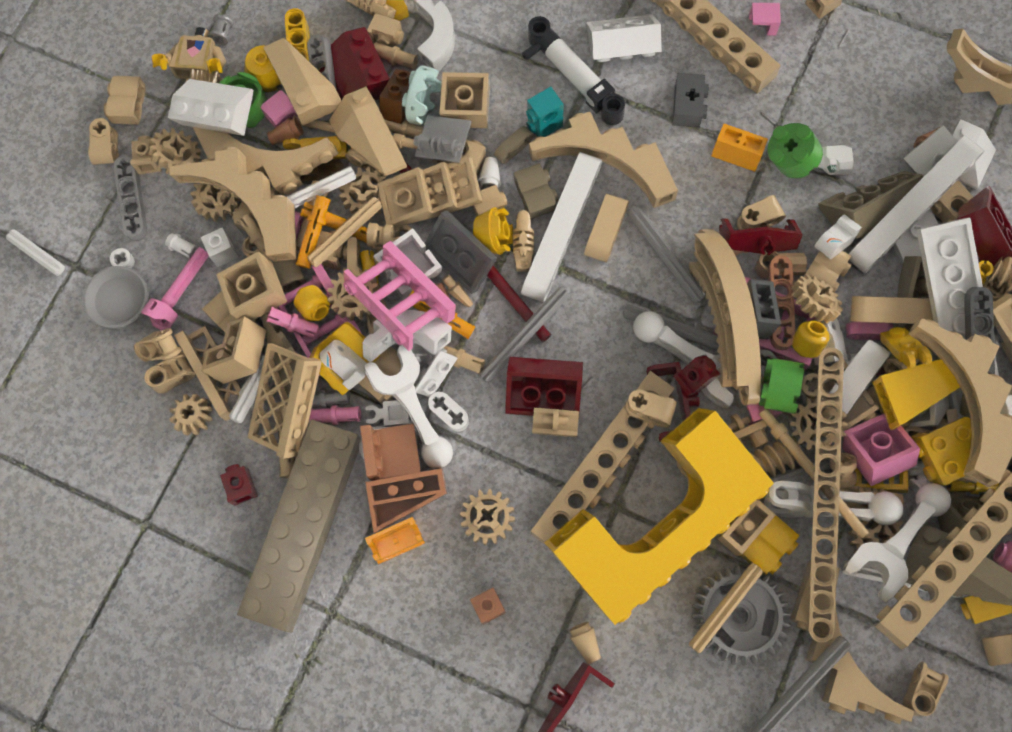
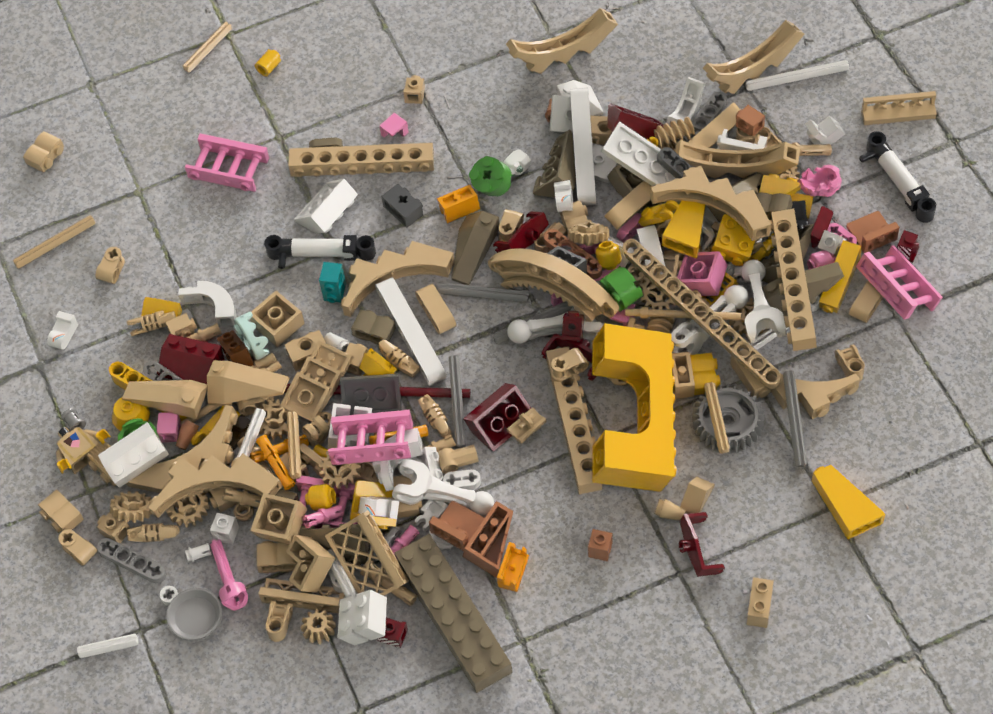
camera: 50 degrees left, 15 degrees down
(157, 346) = (258, 606): tan piece -> none
(169, 191) = (152, 532): none -> tan hinge
(222, 449) = (362, 617): none -> white piece
(442, 139) = (291, 346): light grey hinge -> none
(459, 383) = (452, 459): none -> tan piece
(492, 328) = (435, 415): none -> tan hinge
(497, 509) = (537, 505): tan gear -> none
(513, 144) = (332, 316): dark tan beam -> none
(627, 655) = (696, 495): none -> tan slope
(712, 198) = (473, 243): none -> dark tan wedge

